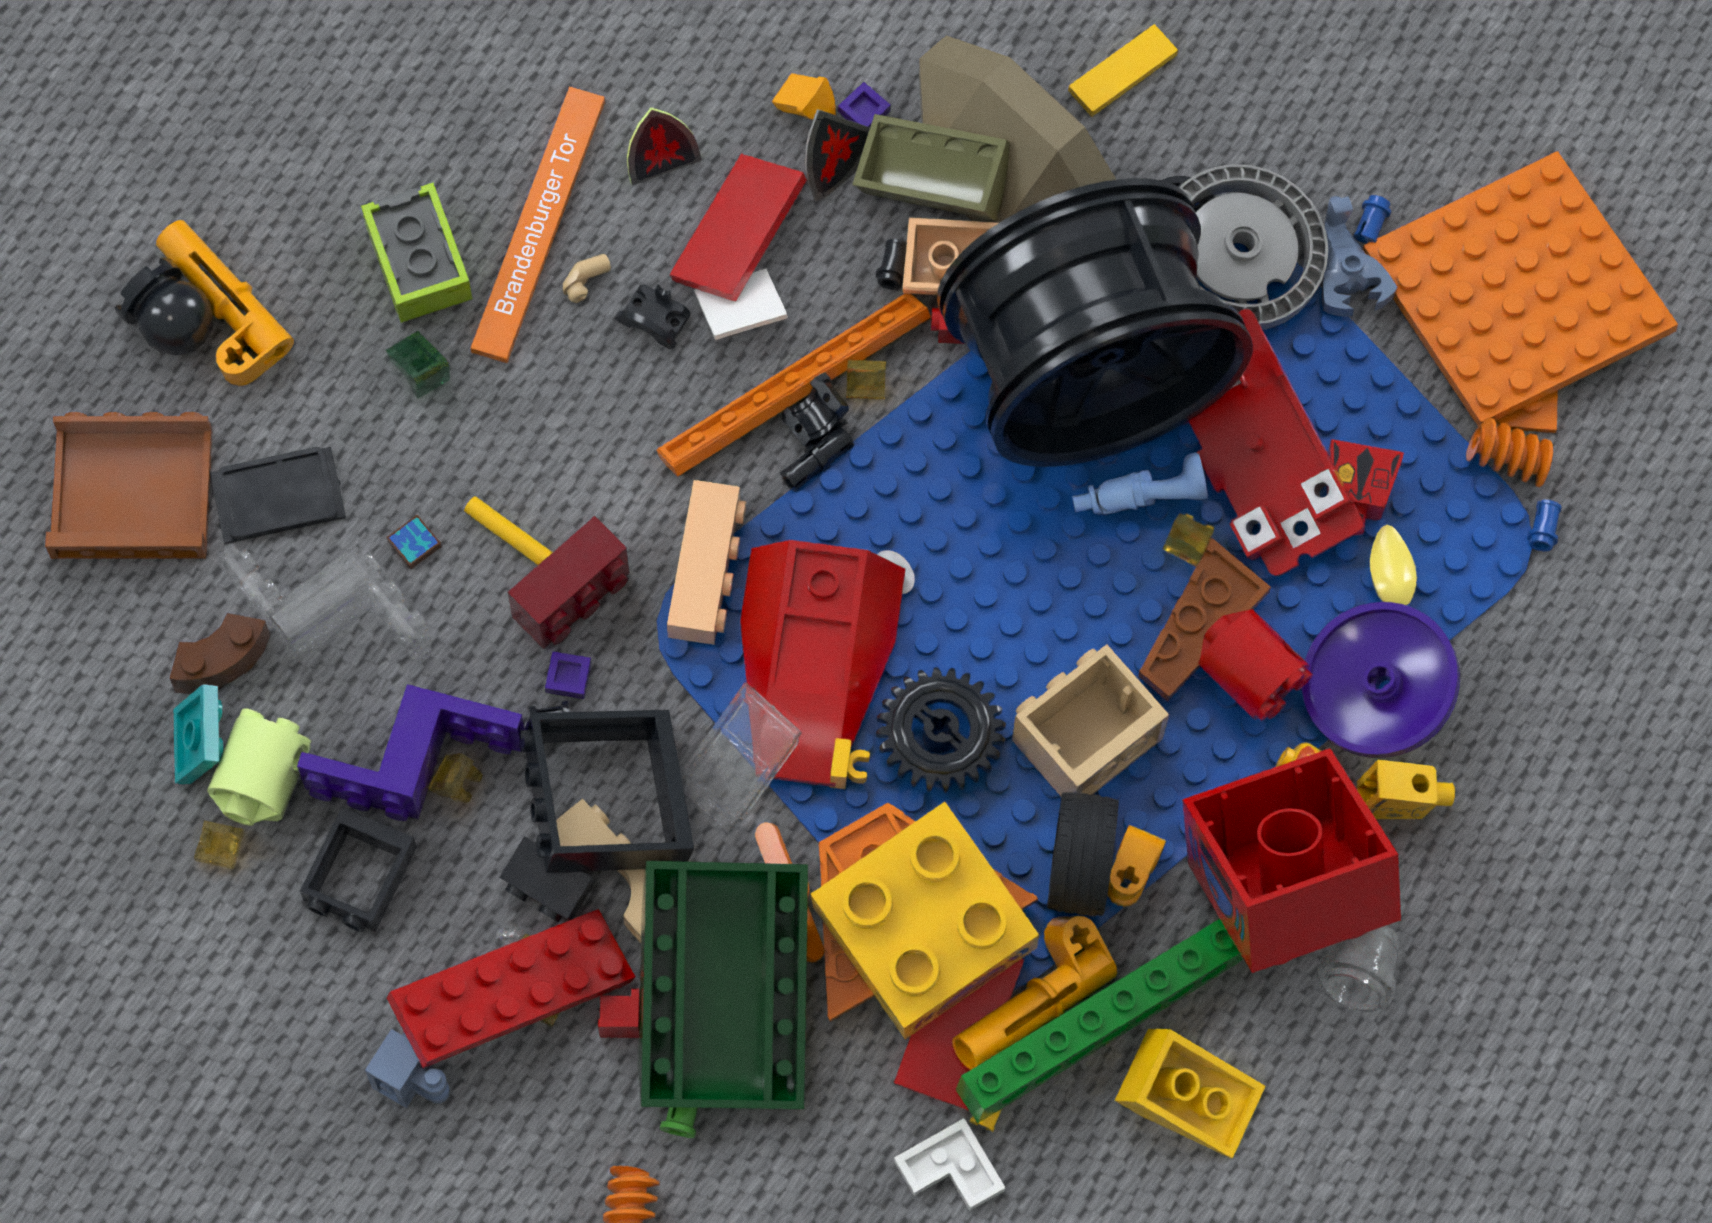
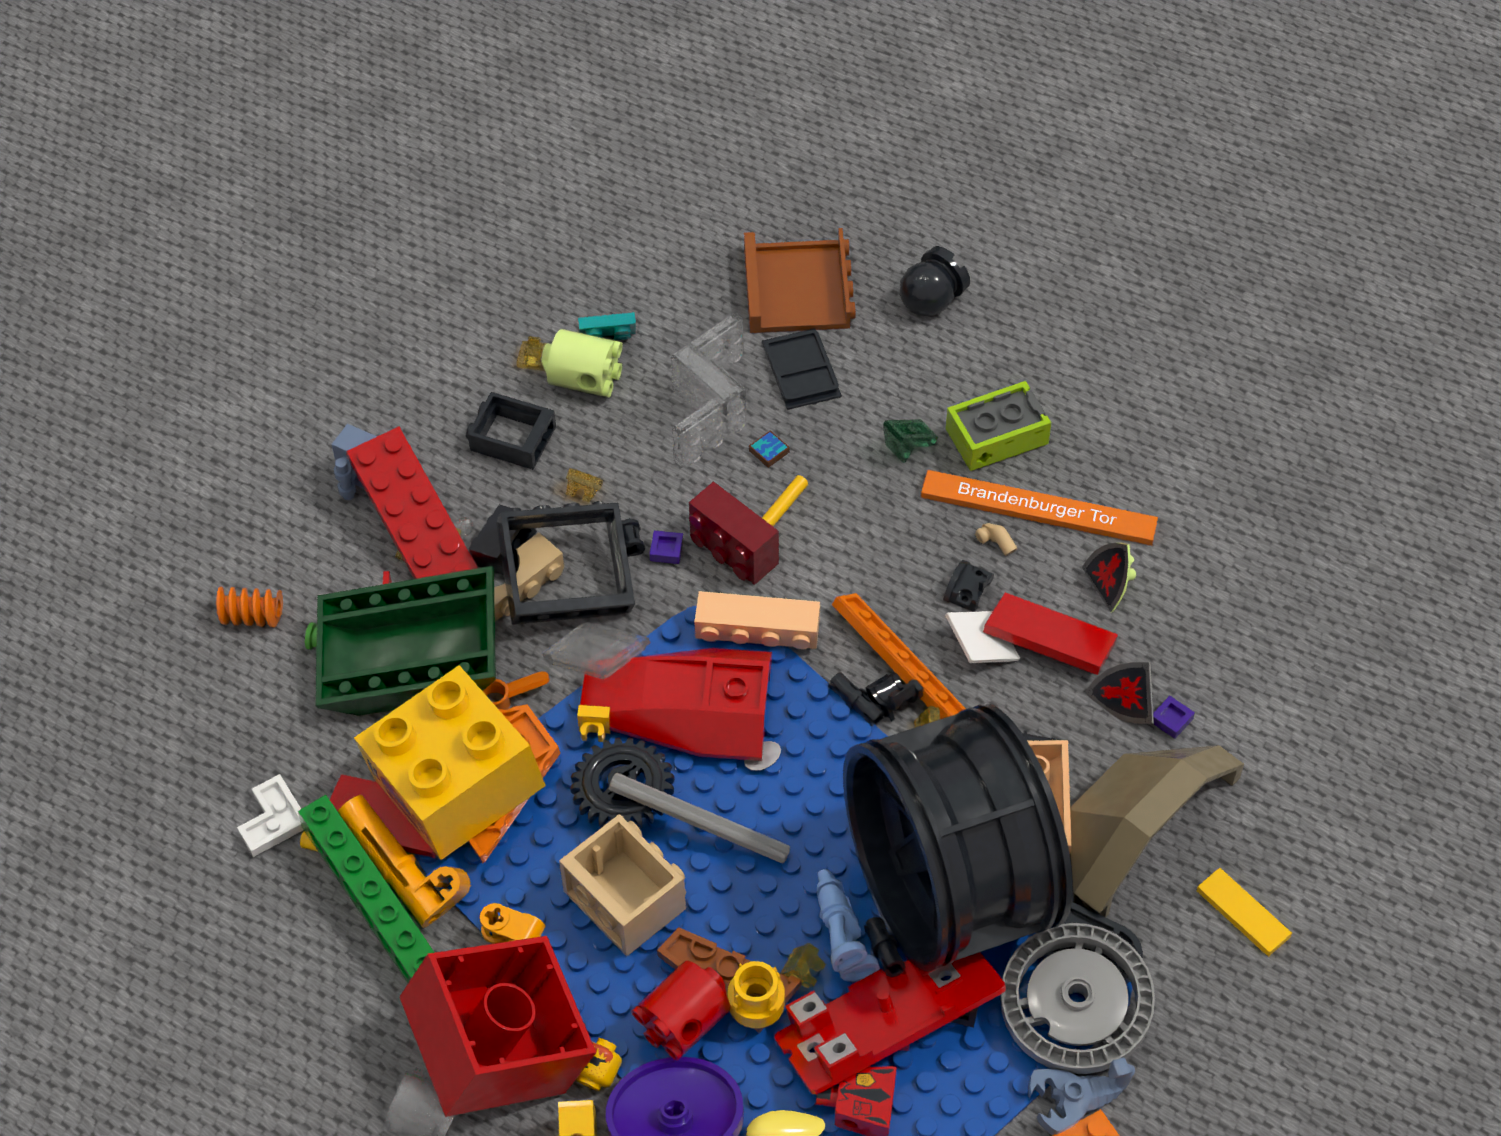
camera: 90 degrees right, 15 degrees down
(221, 656) = (665, 332): reddish brown brick -> none
(255, 329) = (923, 340): light orange piece -> none
(411, 753) = (593, 444): dark purple bracket -> none
(805, 95) = (1172, 676): light orange tile -> none
(933, 167) = (1112, 753): olive slope -> none
(997, 639) = (699, 817): none -> light grey axle
(1083, 854) = (508, 871): black tyre -> none
(1172, 444) = (884, 946): none -> black pin
(1190, 1091) = (322, 983): yellow slope -> none
(1243, 563) = (756, 1011): none -> yellow piece
(1372, 219) = (1127, 1116): blue pin -> none

